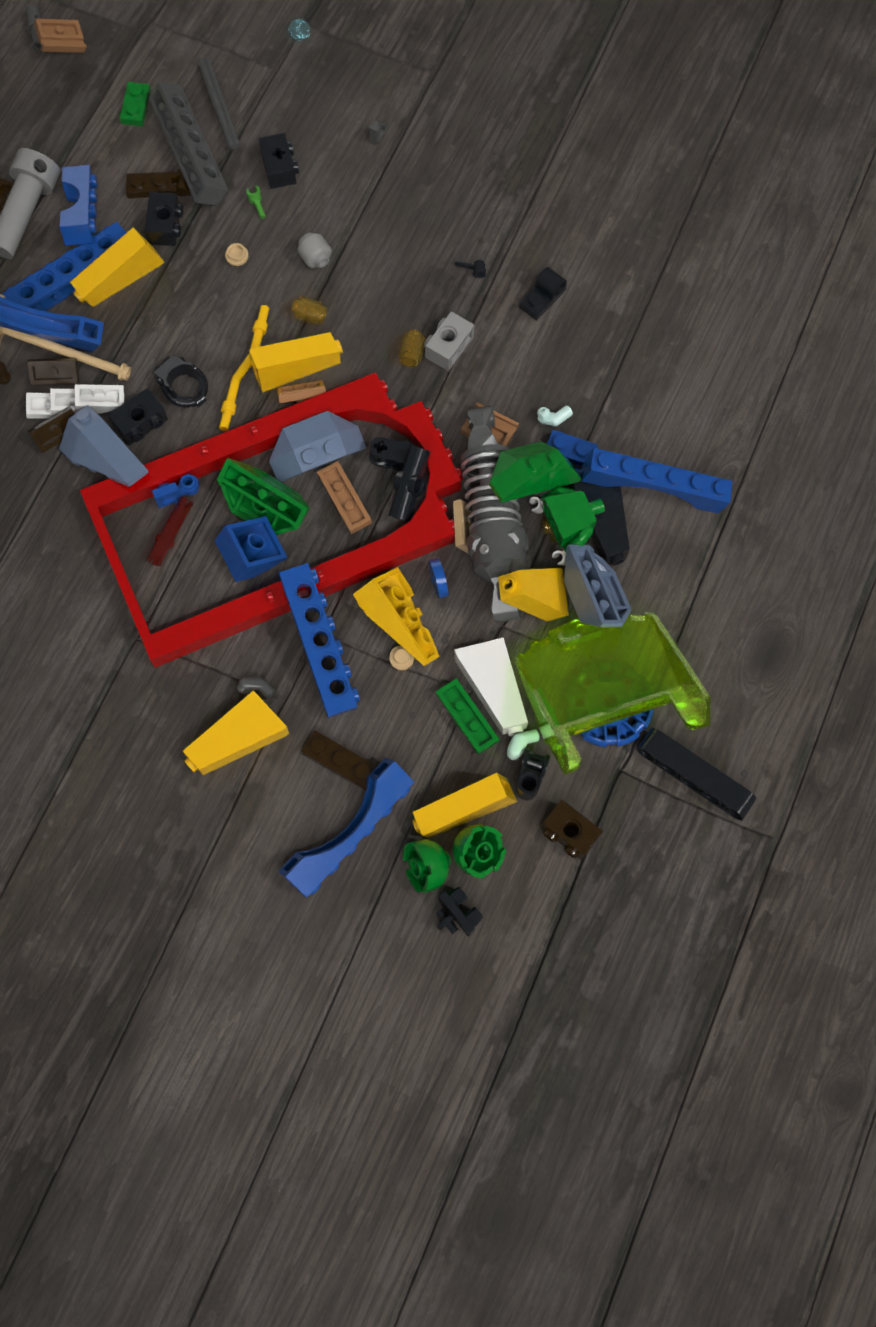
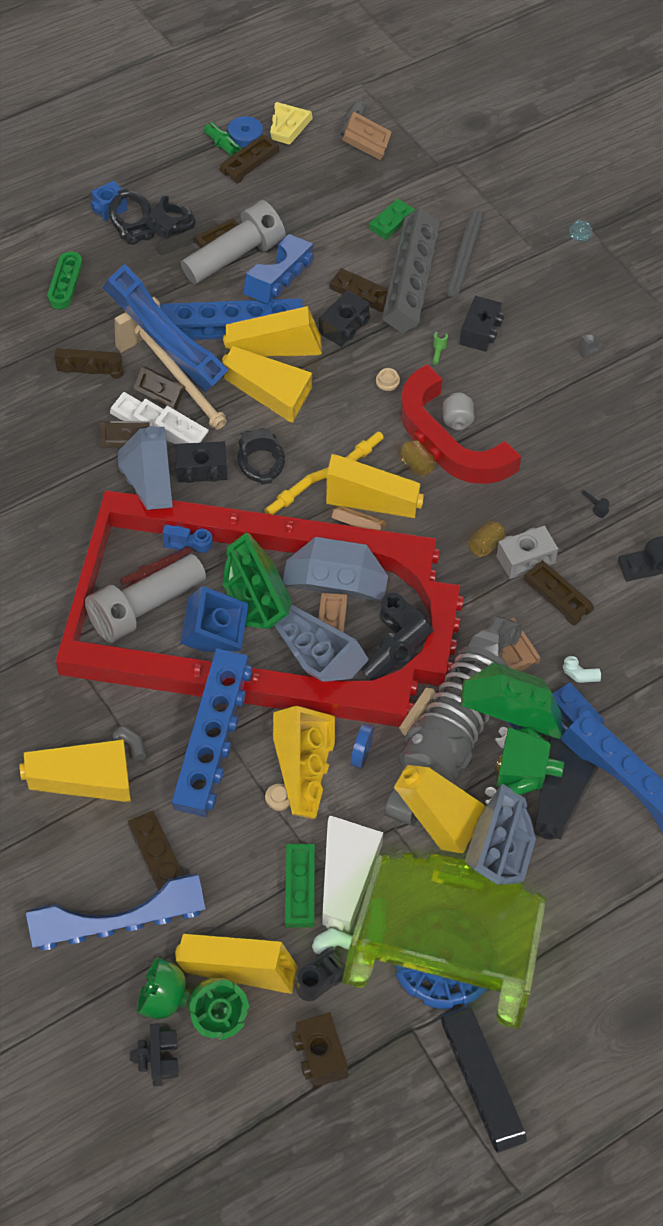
camera: 35 degrees right, 15 degrees down
(140, 312) = (268, 381): none -> yellow slope
(167, 588) = (115, 611): none -> light grey piece
(332, 292) = (459, 462): none -> red arch
(352, 519) = (320, 647): none -> sand blue wedge
(495, 360) = (558, 592): none -> dark brown plate

